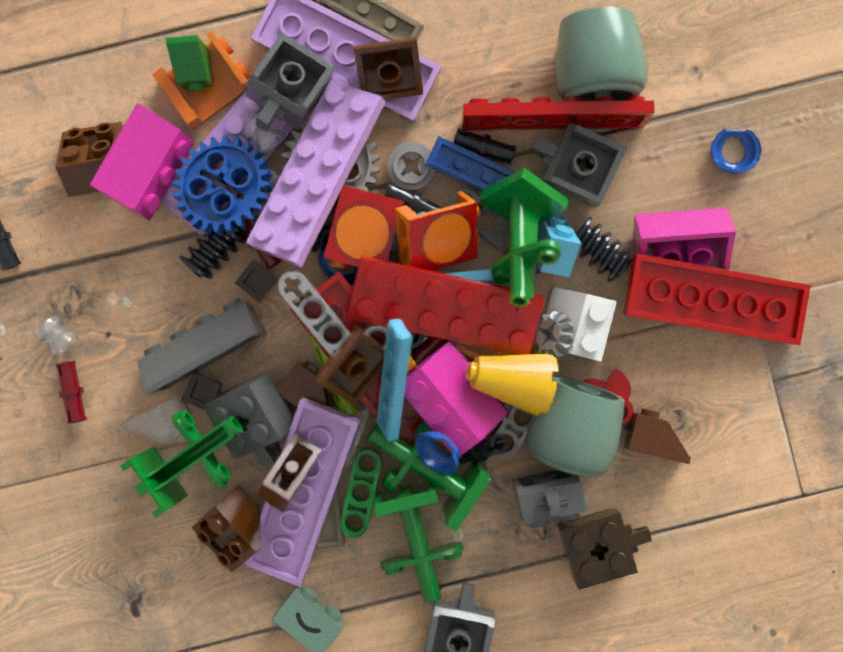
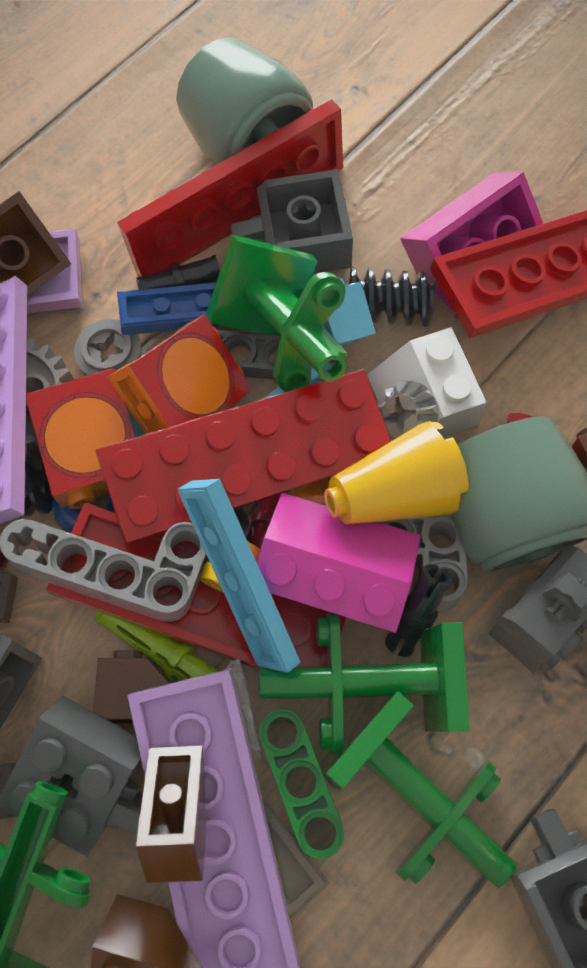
camera: 25 degrees left, 20 degrees down
(352, 366) = (169, 589): reddish brown slope -> none
(433, 456) = (361, 653): blue piece -> none
(751, 146) = (462, 112): blue piece -> none

